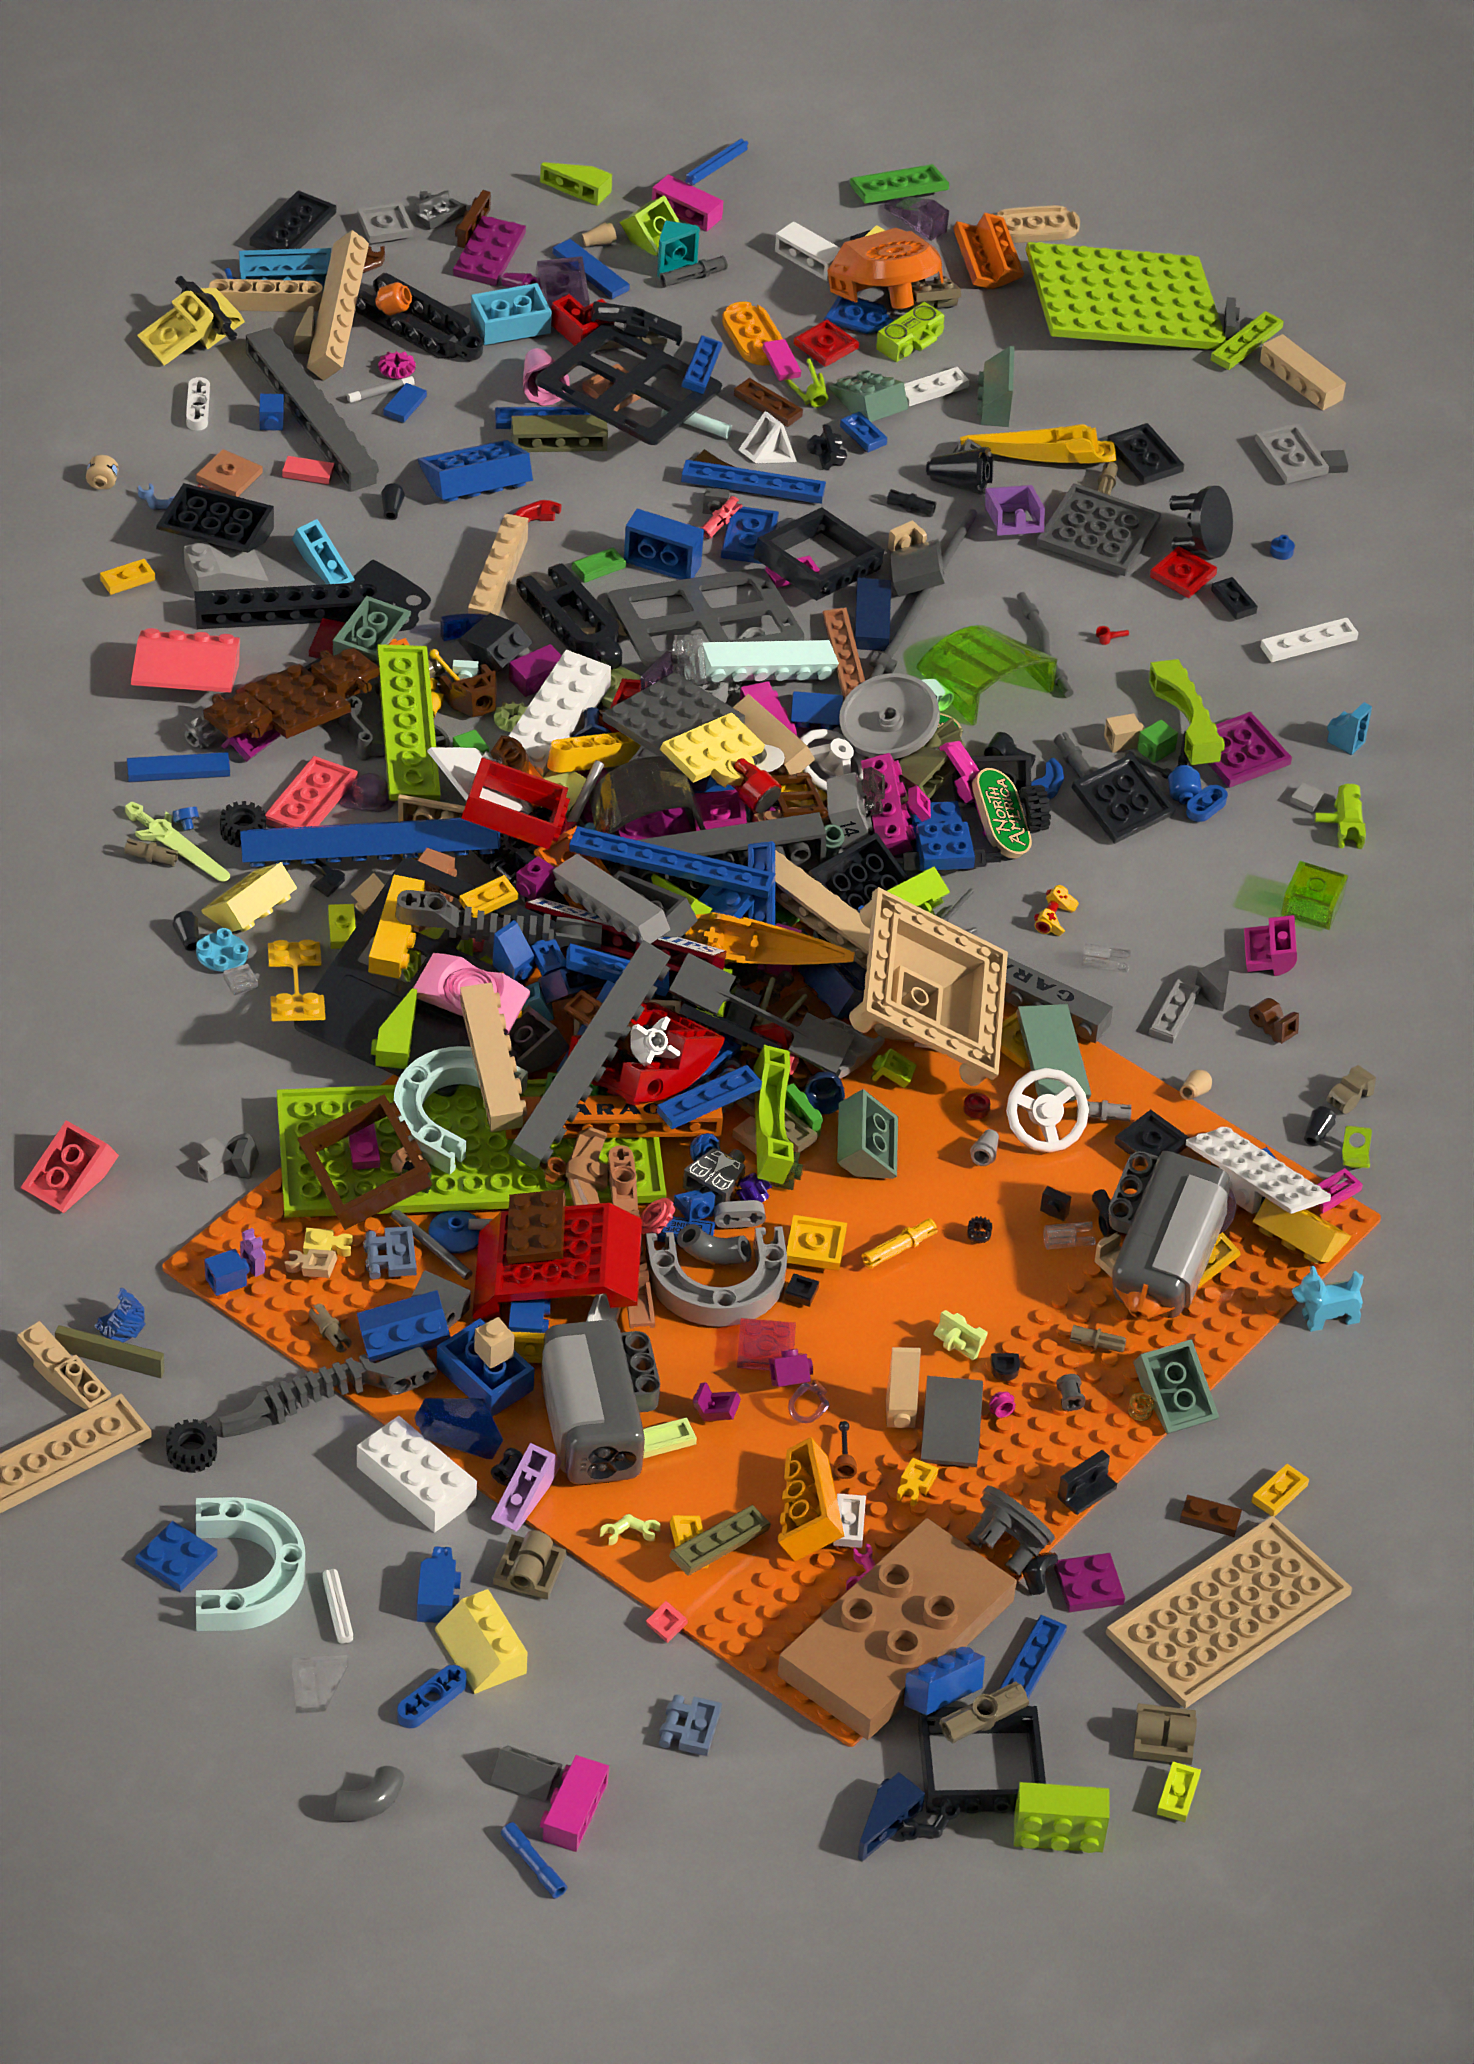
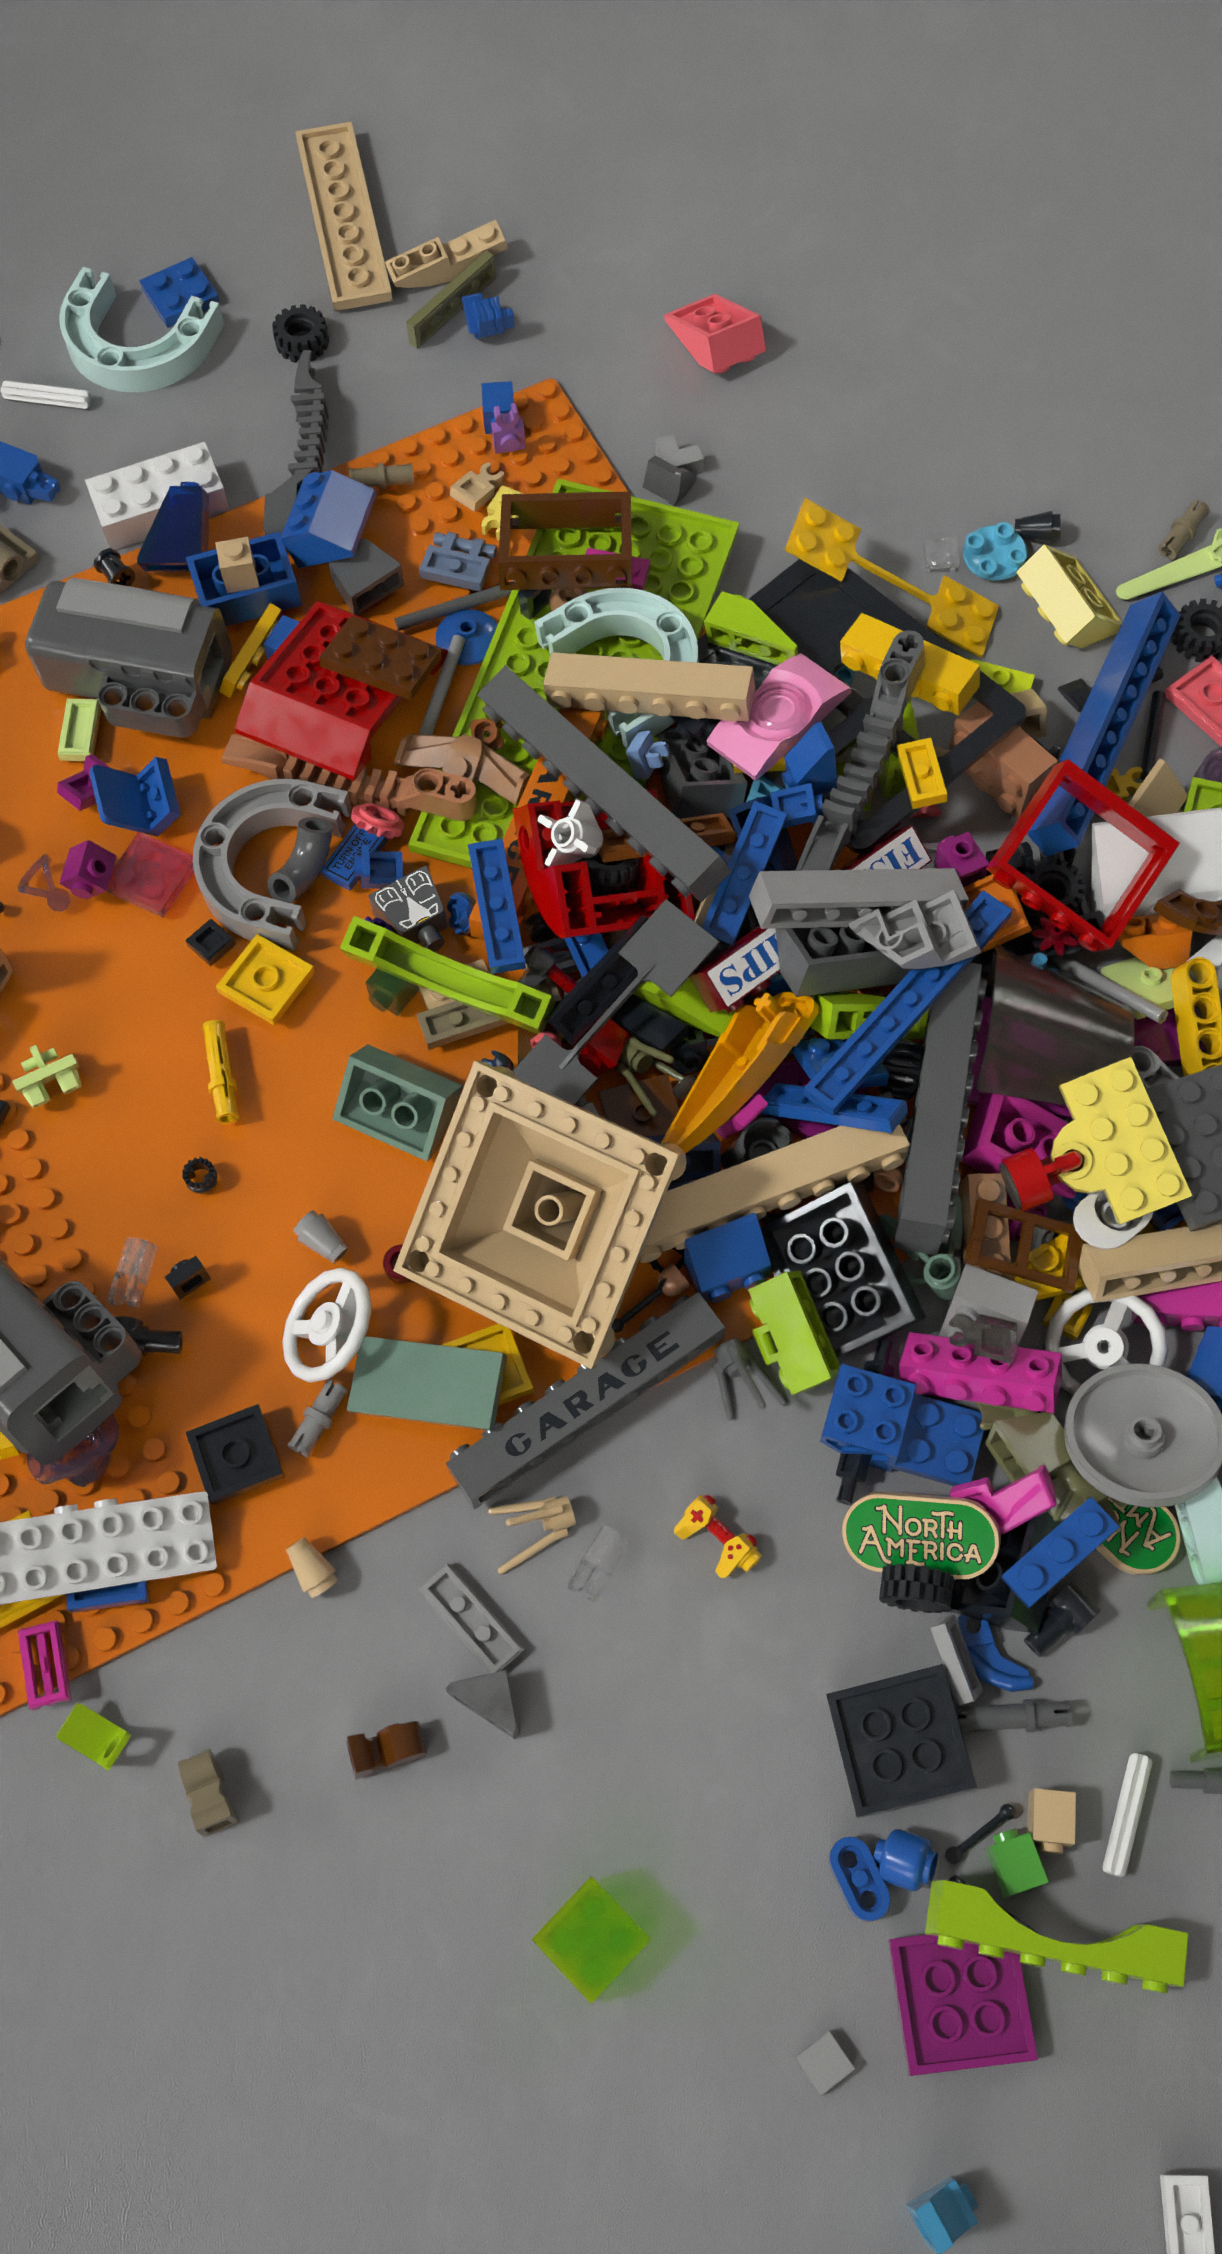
camera: 120 degrees right, 20 degrees up
(526, 1487) = (68, 562): lavender slope -> none
(535, 1067) = (645, 754): none -> light blue tile
(624, 857) = (921, 934): none -> light grey slope
(710, 1359) = (138, 801): none -> blue bracket
(739, 1214) = (348, 905): light grey beam -> none
(799, 1105) = (470, 1044): bright green plate -> none
(919, 803) = (959, 1408): dark pink plate -> none
(983, 736) = (1059, 1552): none -> blue plate
(1064, 783) = (956, 1659): none -> light grey tile
(1093, 986) = (554, 1515): none -> tan plant
(1099, 707) = (1127, 1815): none -> white axle
(1271, 946) = (522, 1816): dark pink brick -> none
(1319, 1125) = (170, 1712): black cone -> none
(1347, 816) = (752, 2105): lime piece -> none

